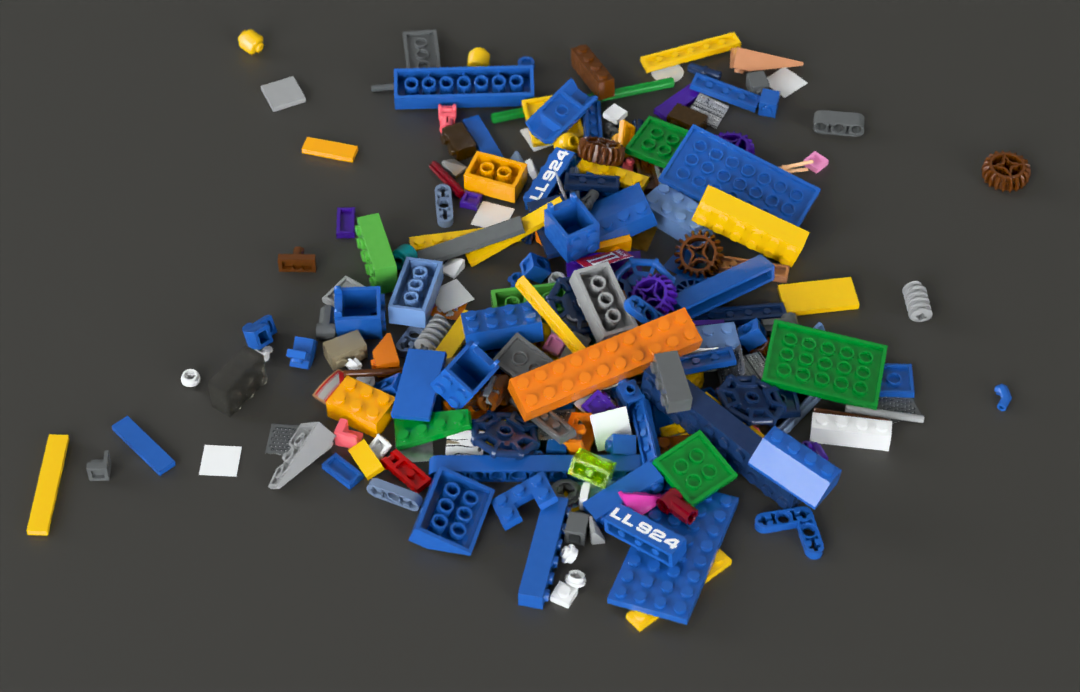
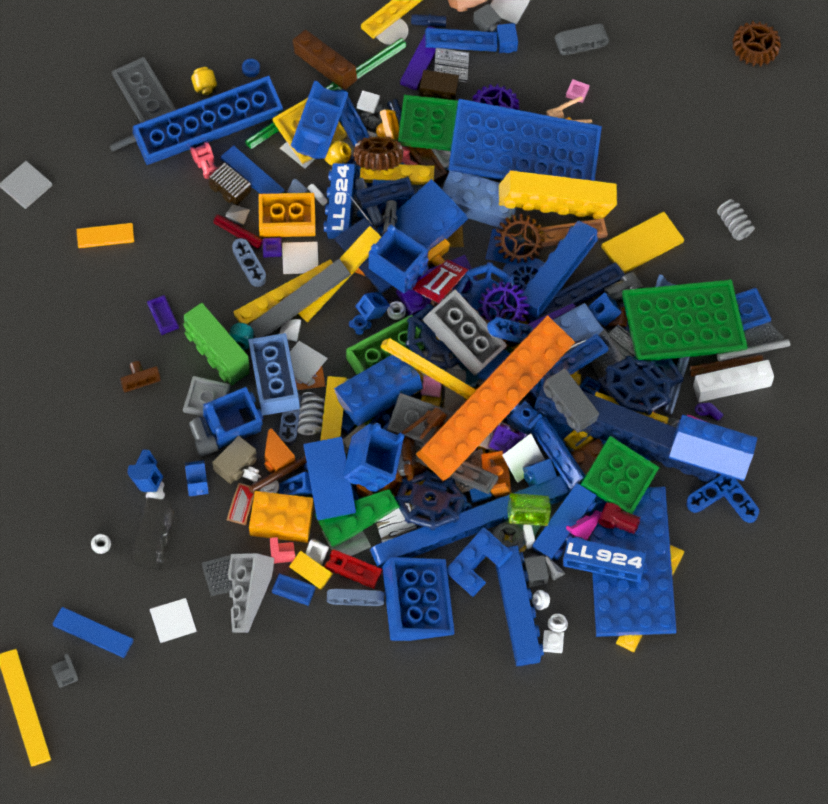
camera: 25 degrees left, 15 degrees up
(535, 362) = (435, 419): none -> reddish brown plant

